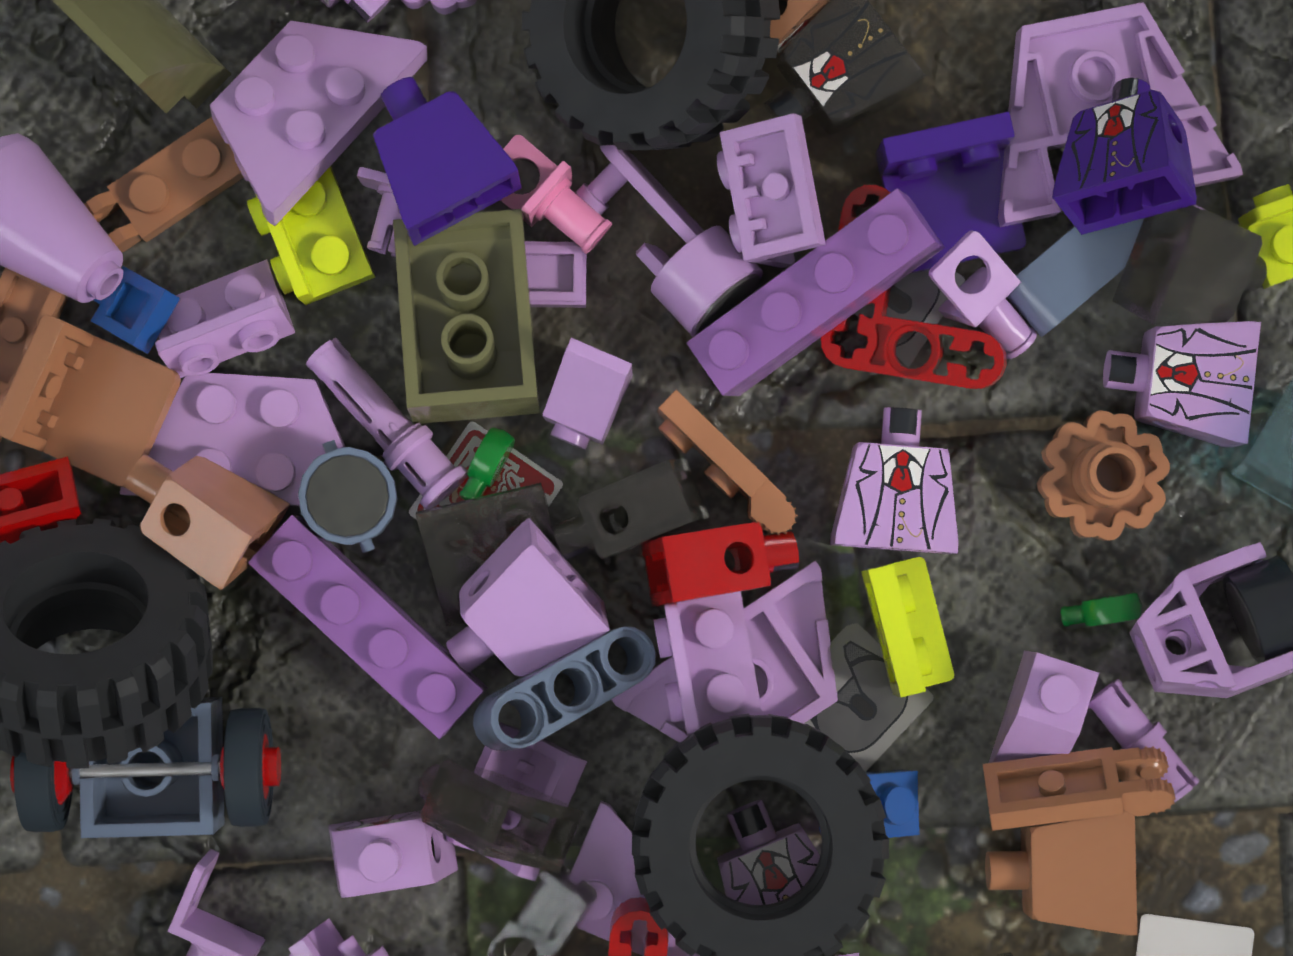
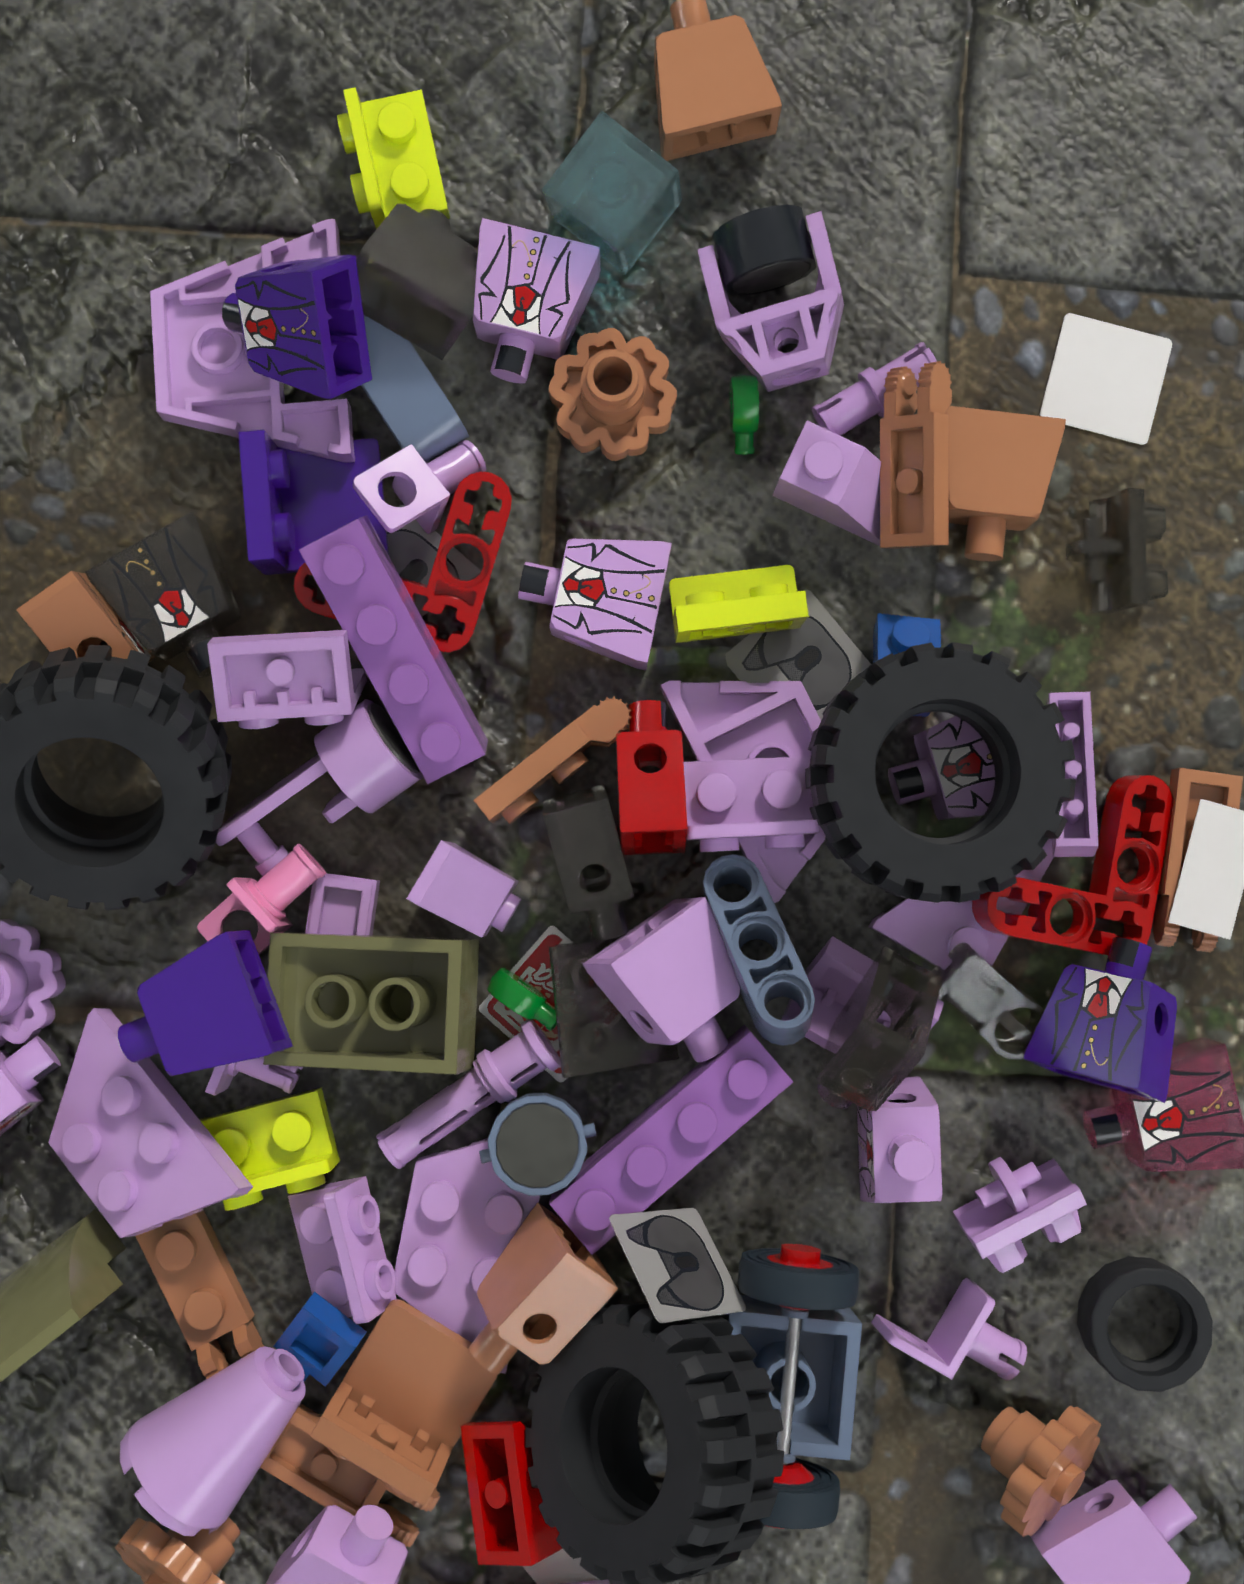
camera: 85 degrees left, 0 degrees up
(250, 645) = (677, 1264): none -> sticker

